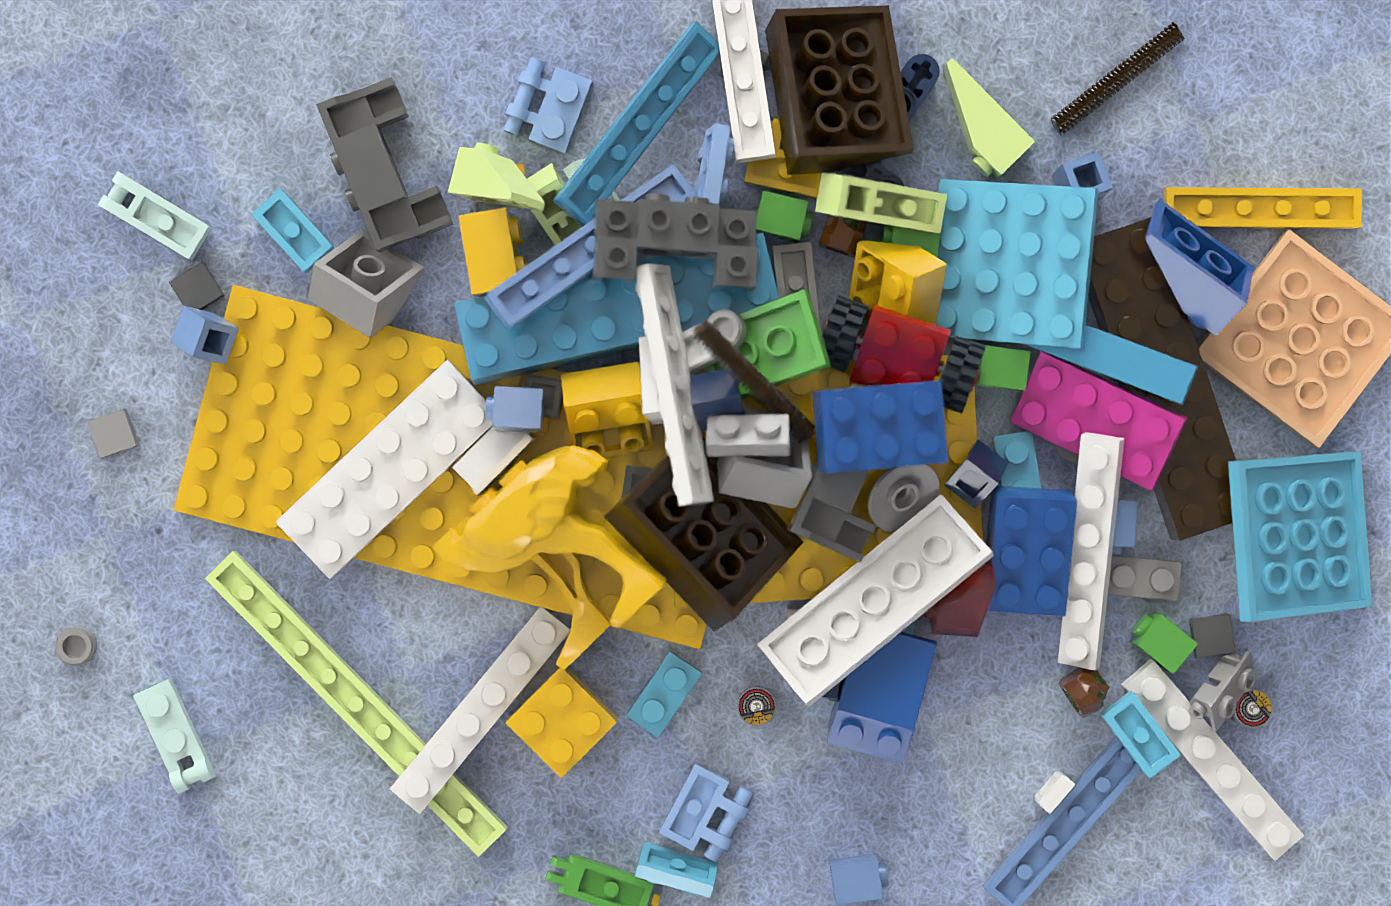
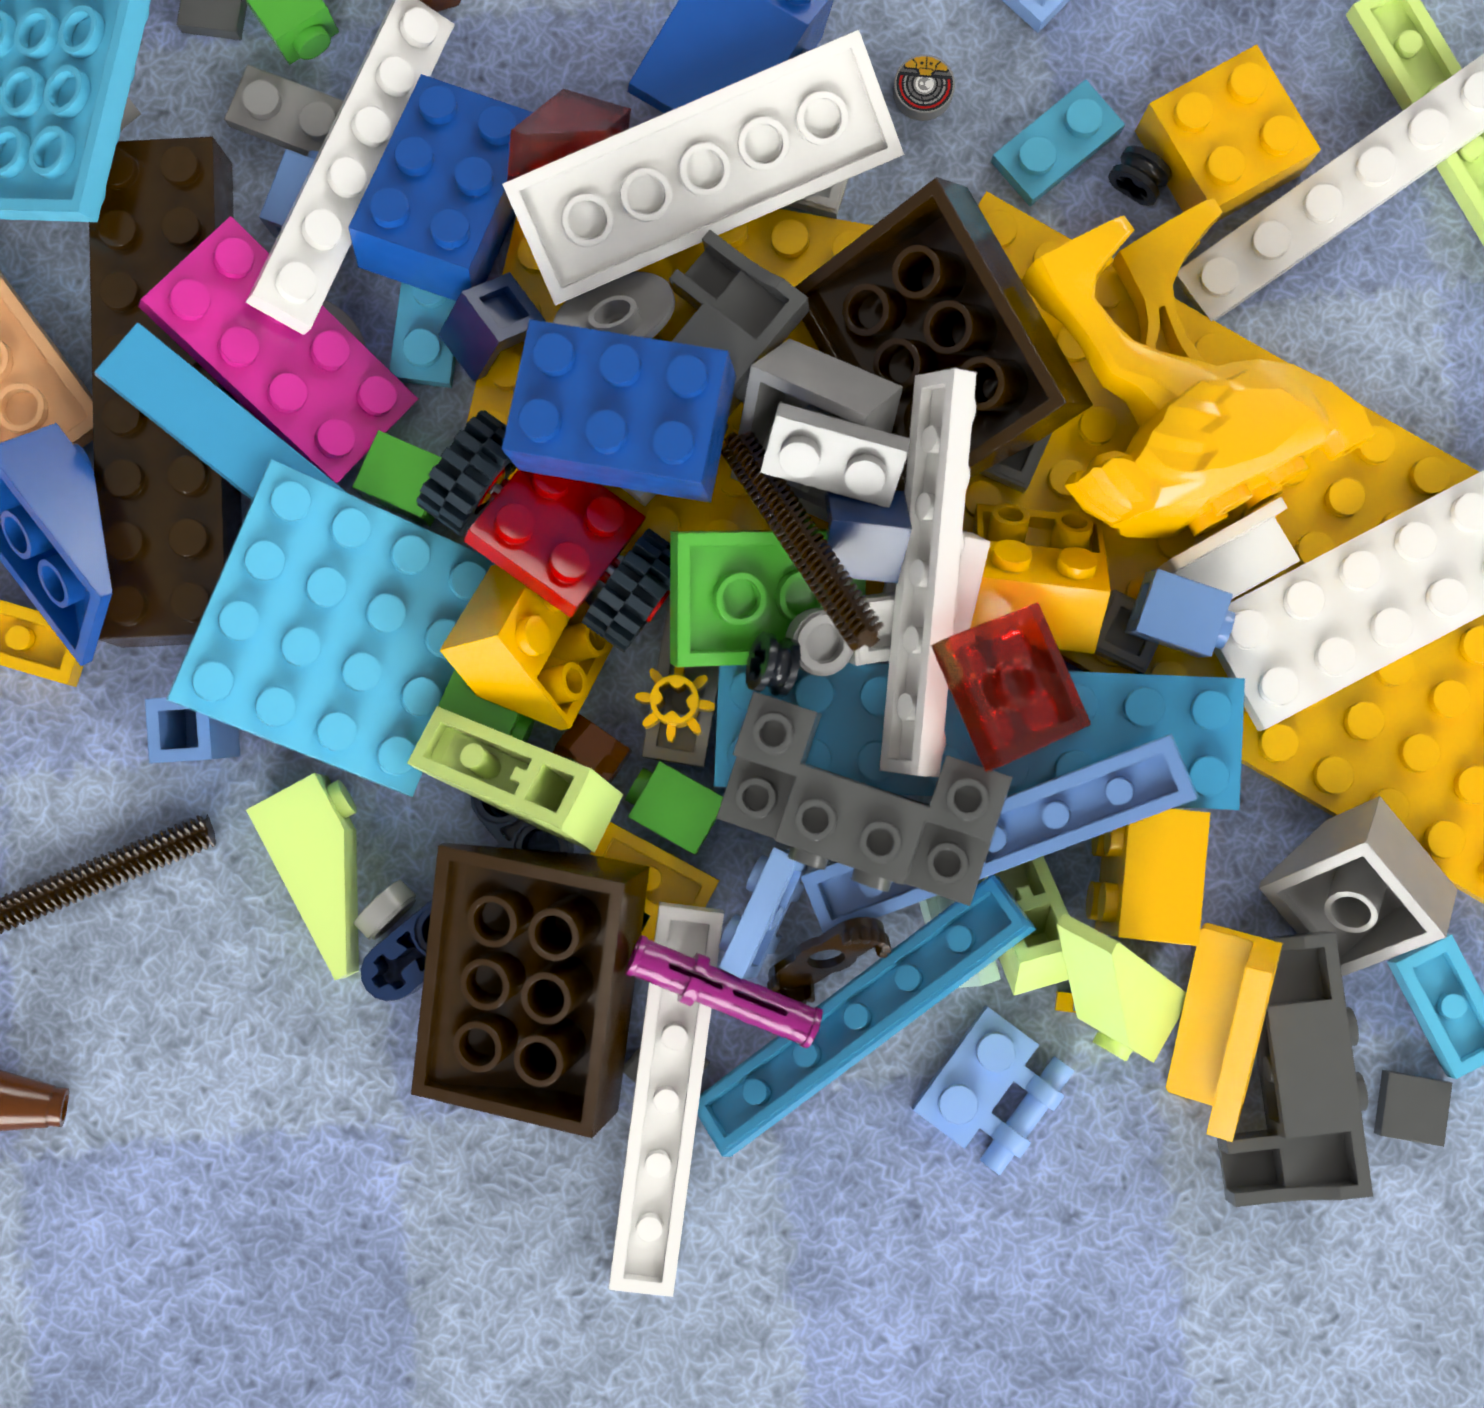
camera: 155 degrees left, 5 degrees down
(298, 165) = (1413, 1108): none -> dark grey tile
(426, 178) = (1223, 1022): none -> yellow panel
(608, 330) = (1011, 686): none -> clear red plate
(608, 685) = (1140, 175): none -> black bush
(682, 138) = (798, 972): none -> dark brown piece
(749, 306) = (773, 664): none -> black bush
(770, 117) = (701, 982): none -> magenta pin
(797, 265) = (679, 685): none -> yellow gear
(936, 108) = (385, 910): none -> light grey tile

